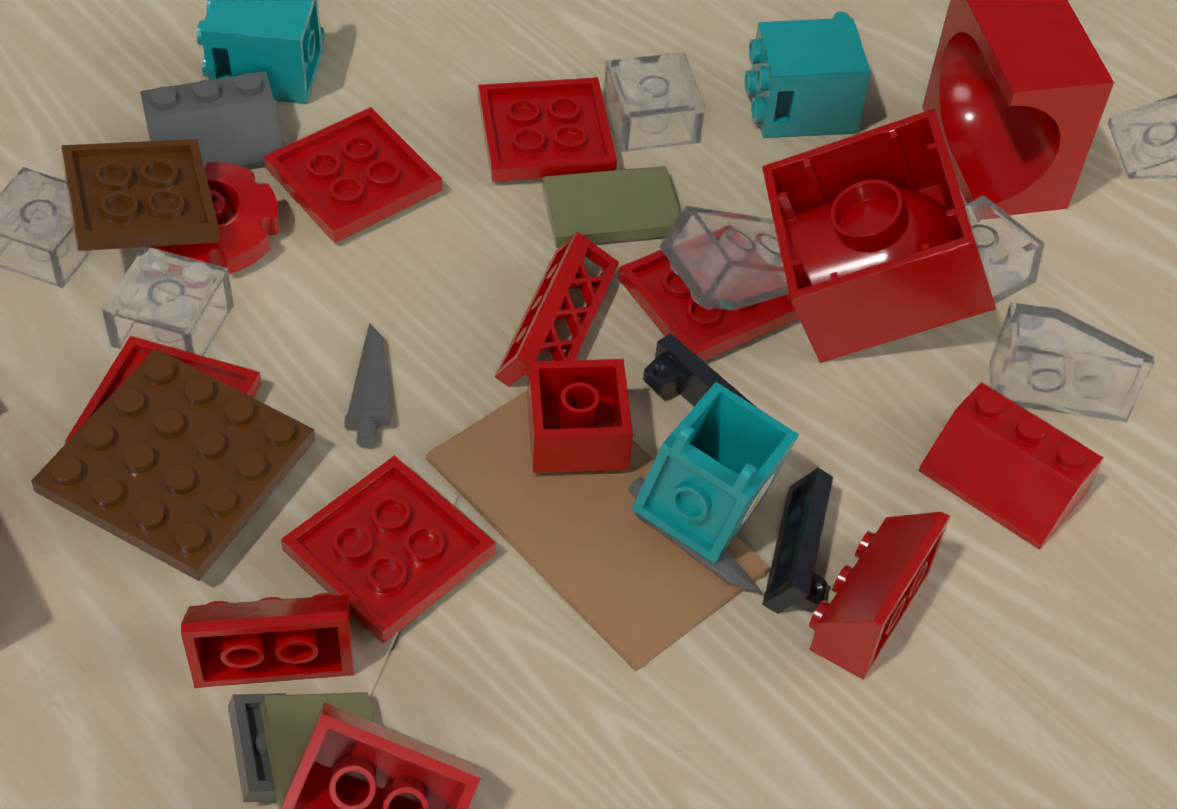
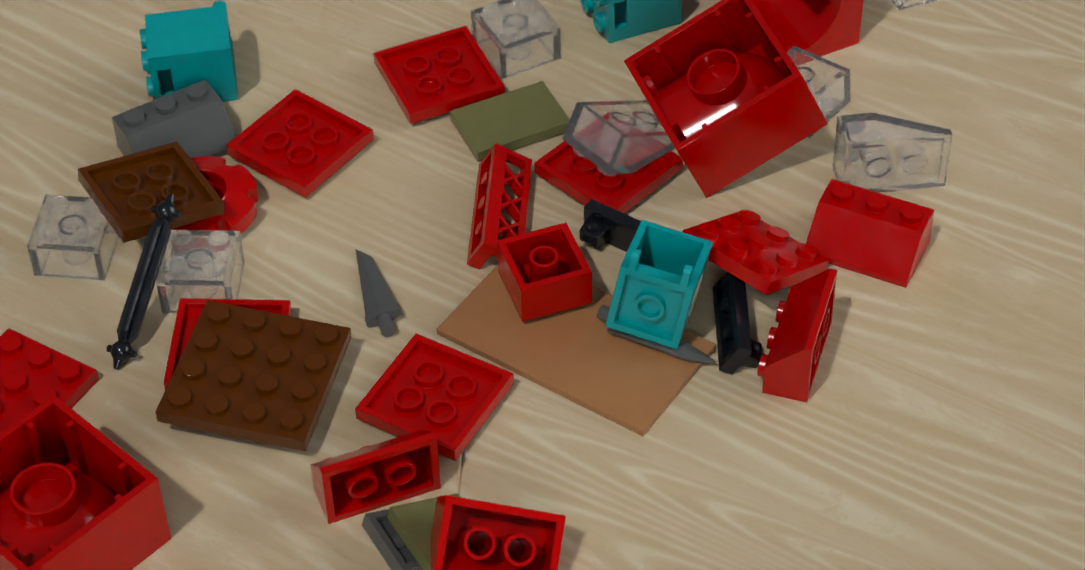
camera: 10 degrees left, 5 degrees down
(87, 305) = (143, 282): none -> black wheel
(858, 456) = (759, 252): none -> red plate

